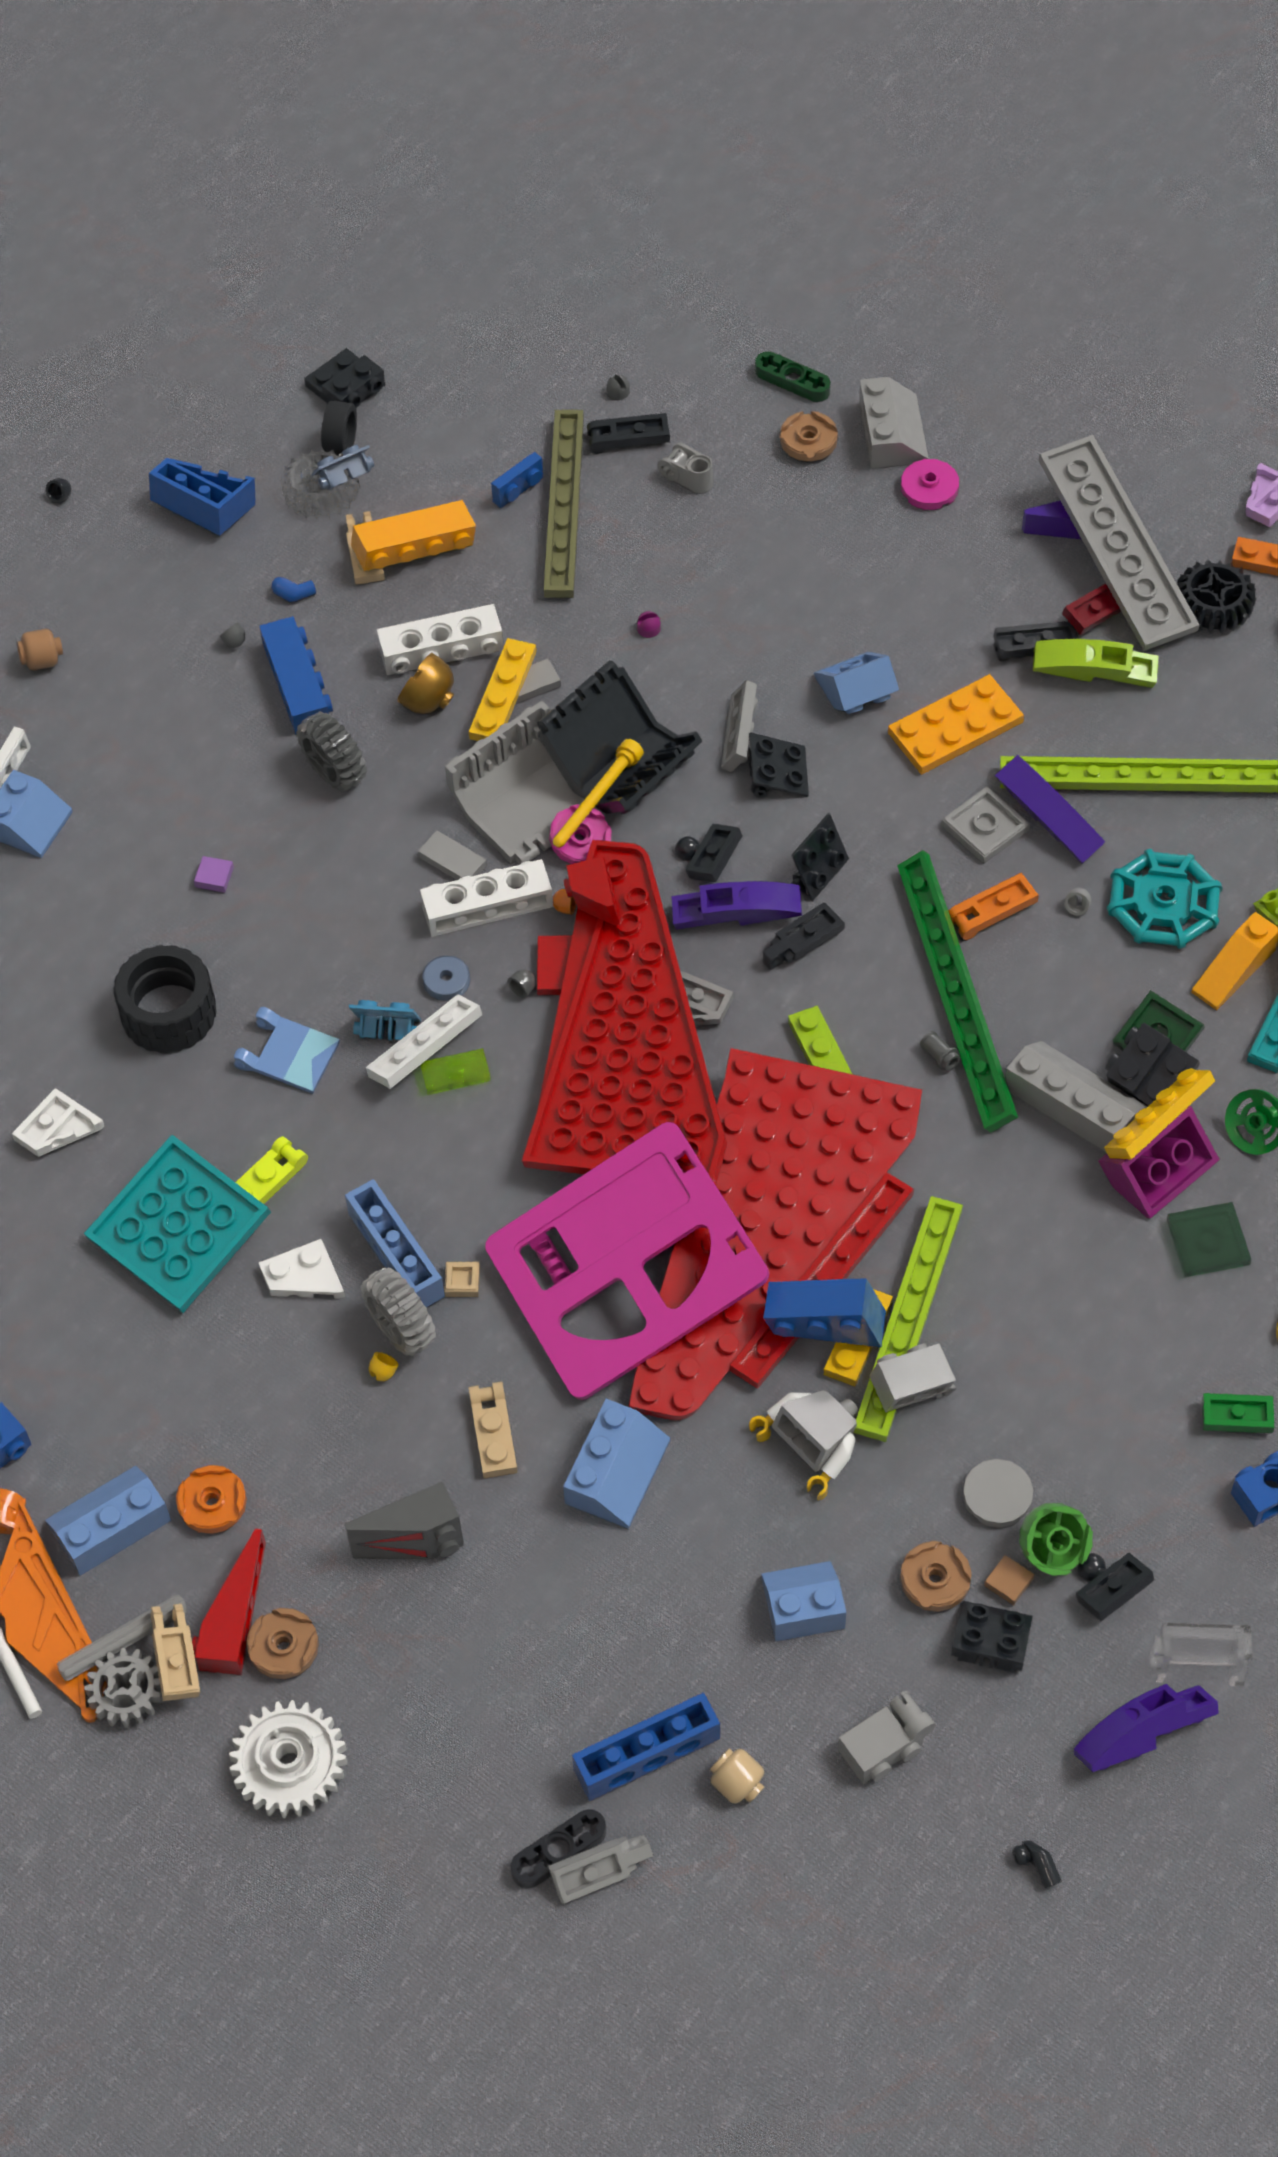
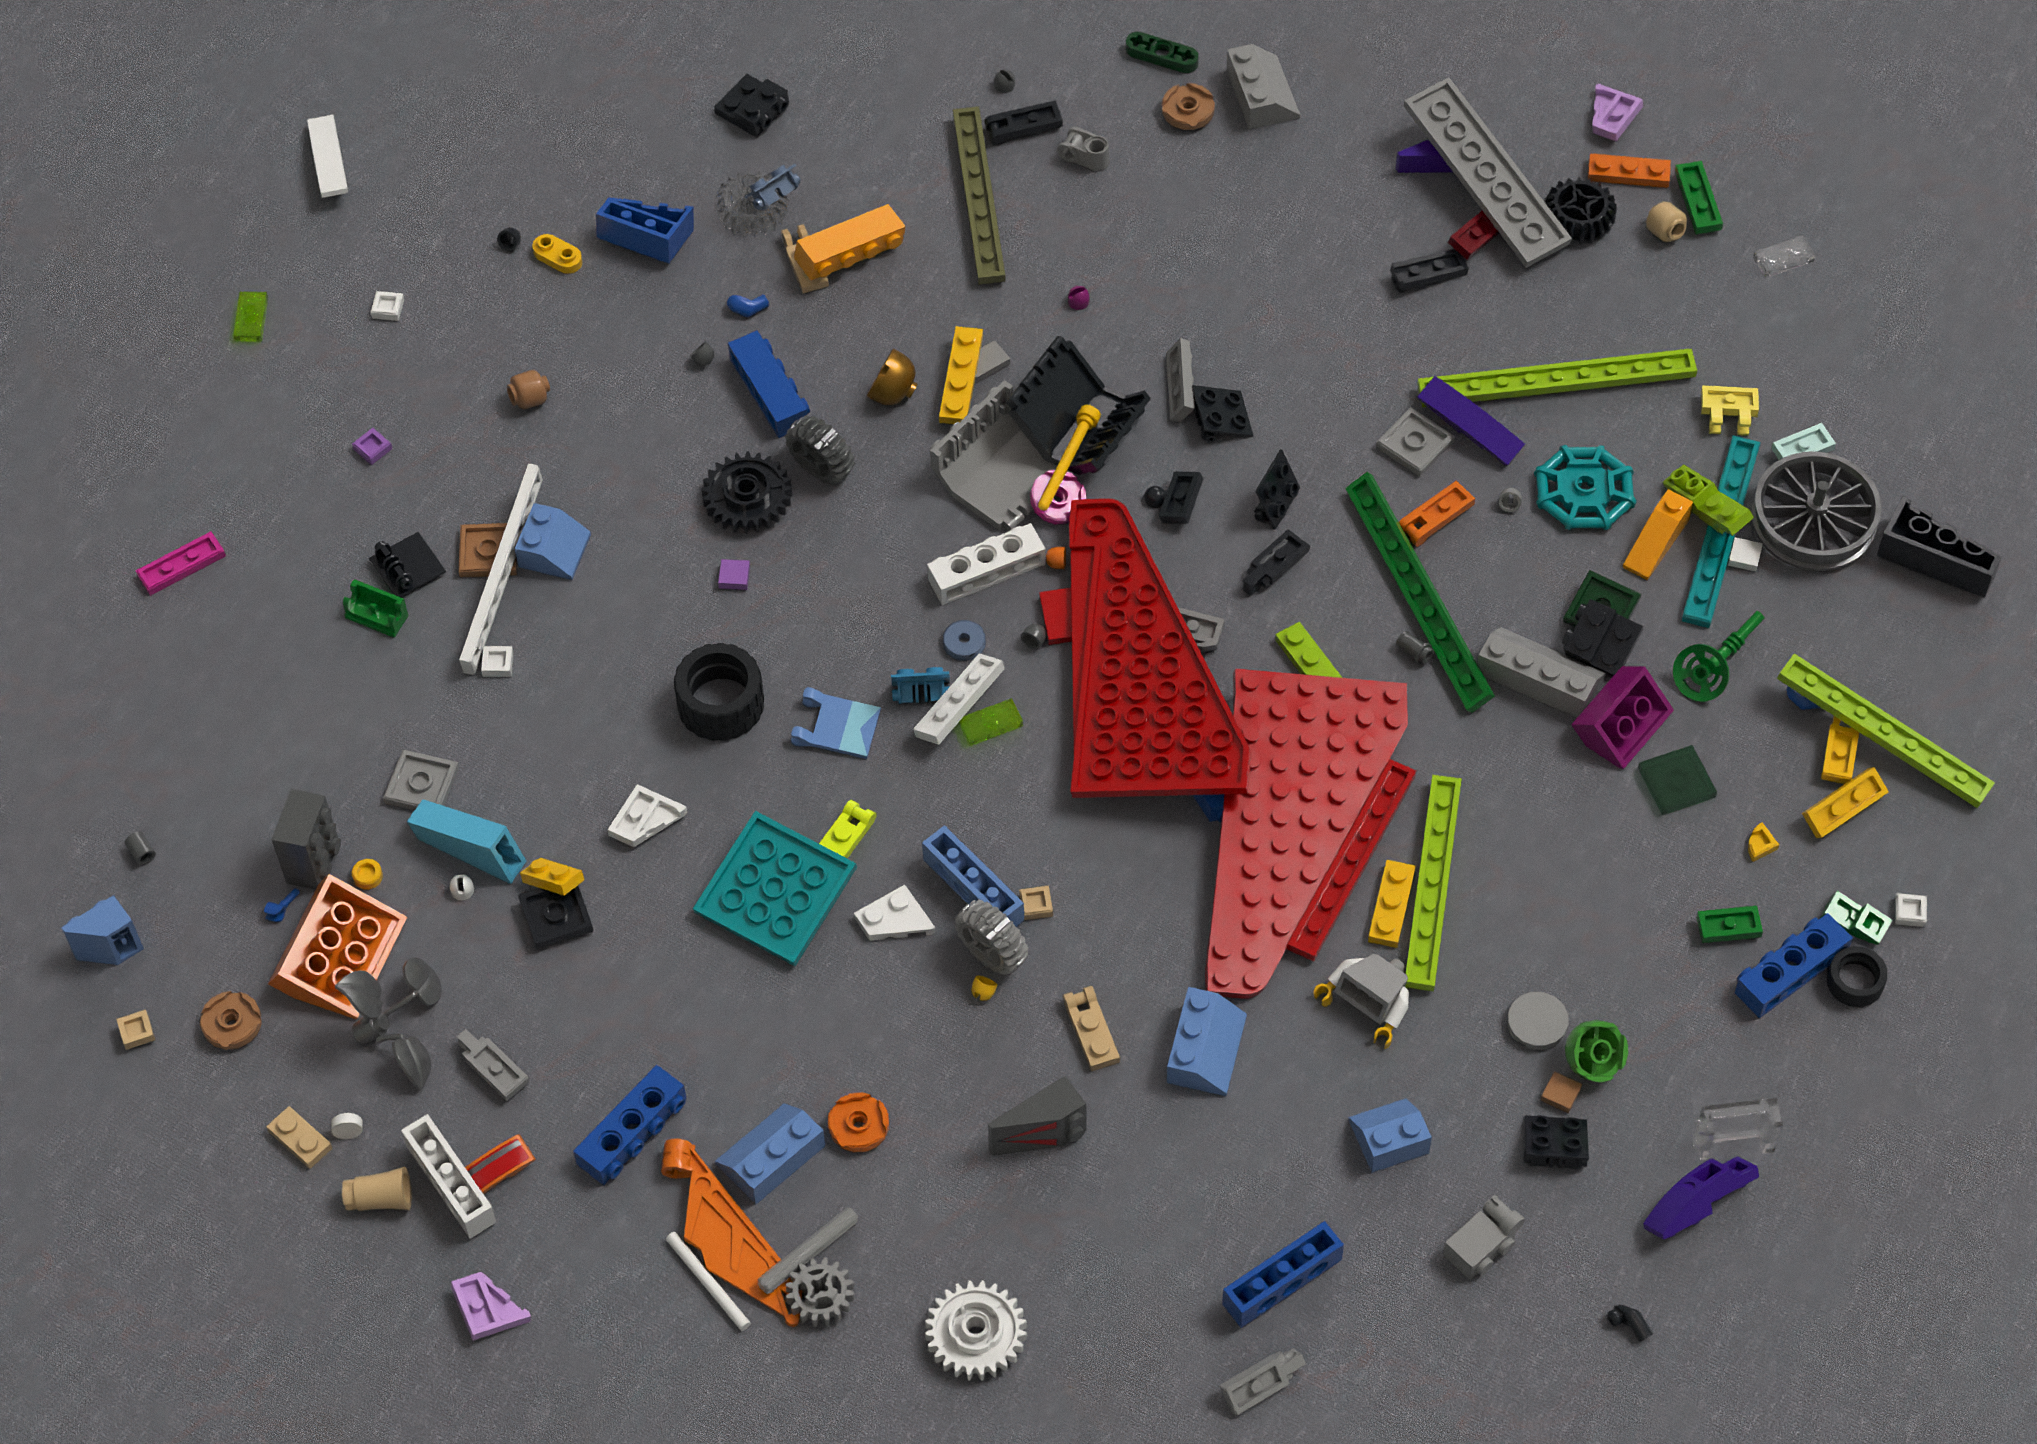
camera: 10 degrees left, 0 degrees up
(100, 509) = (555, 252): none -> yellow plate
(174, 1656) = (859, 1257): tan hinge -> none
(226, 1625) = (897, 1226): red slope -> none
(246, 787) = (767, 496): none -> black gear
(278, 1627) = (943, 1221): medium nougat plate -> none
(338, 427) = (759, 150): black tyre -> none
(447, 636) = (902, 330): white brick -> none
(451, 857) = (945, 531): light grey tile -> none
(517, 480) = (932, 178): blue plate -> none
(531, 1856) = (1200, 1379): black beam -> none
(592, 889) = (1084, 544): red slope -> none
(612, 1227) = (1165, 837): dark pink door -> none
(737, 1776) = (1364, 1287): tan head -> none
(741, 901) = (1211, 538): dark purple slope -> none
(826, 1311) = (1363, 885): blue wedge -> none
(858, 681) = (1278, 326): medium blue slope -> none
(912, 1376) = (1448, 931): light grey hinge -> none
(930, 484) = (1306, 137): dark pink plate -> none
(940, 1560) = (1500, 1084): medium nougat plate -> none
(955, 724) = (1371, 354): light orange plate -> none
(1095, 658) = (1486, 280): lime slope -> none
(1111, 1586) = (1649, 1085): black plate -> none
(1159, 1114) = (1618, 676): yellow plate -> none

